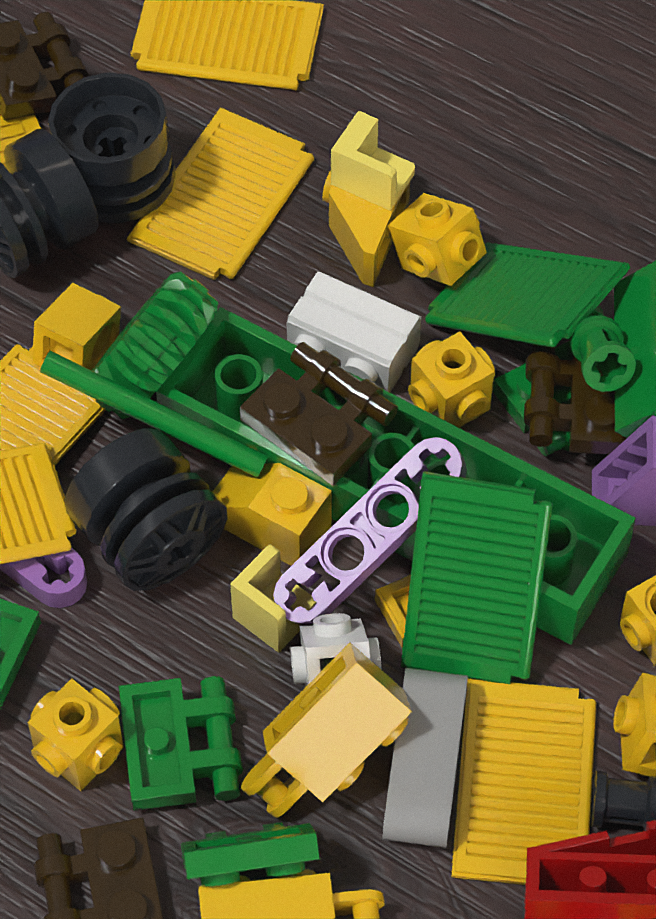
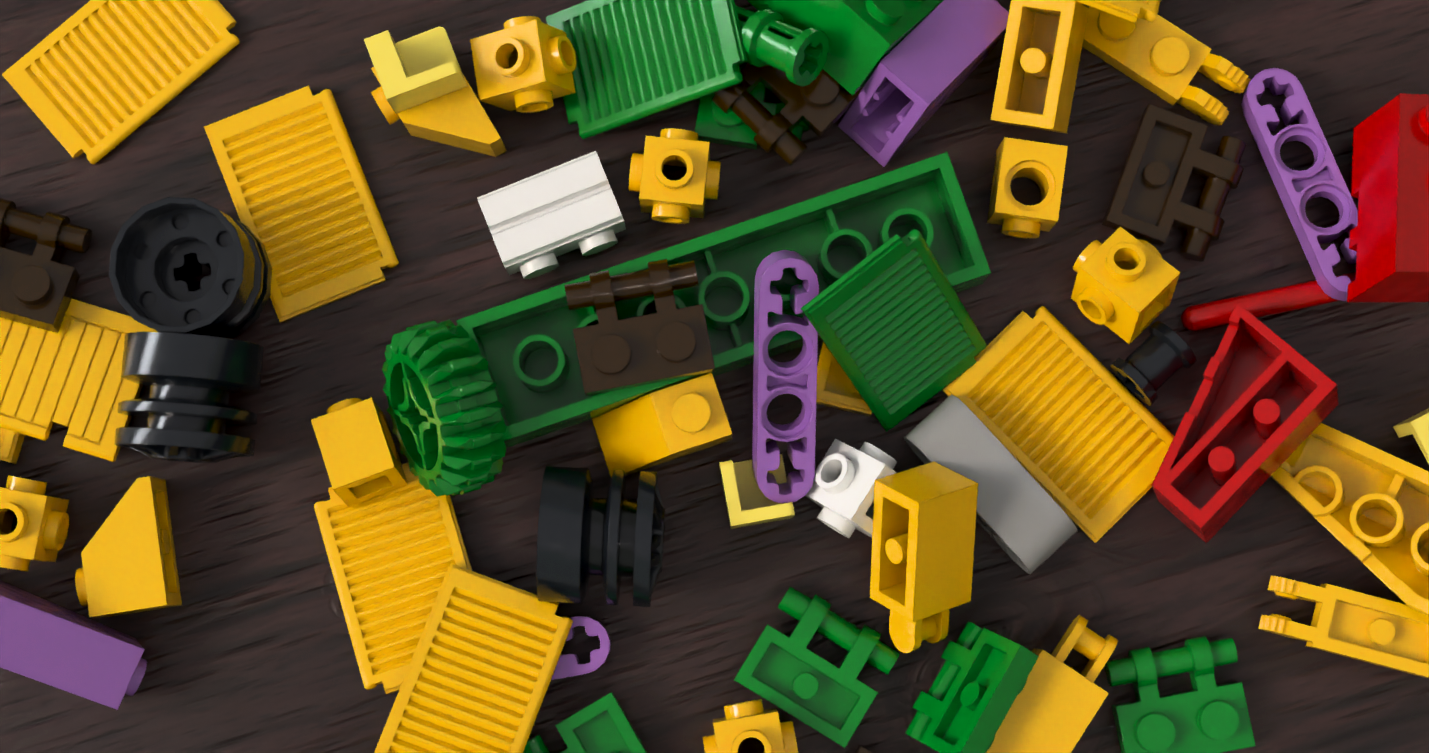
camera: 50 degrees left, 25 degrees up
(153, 413) = (524, 468): green bar -> none

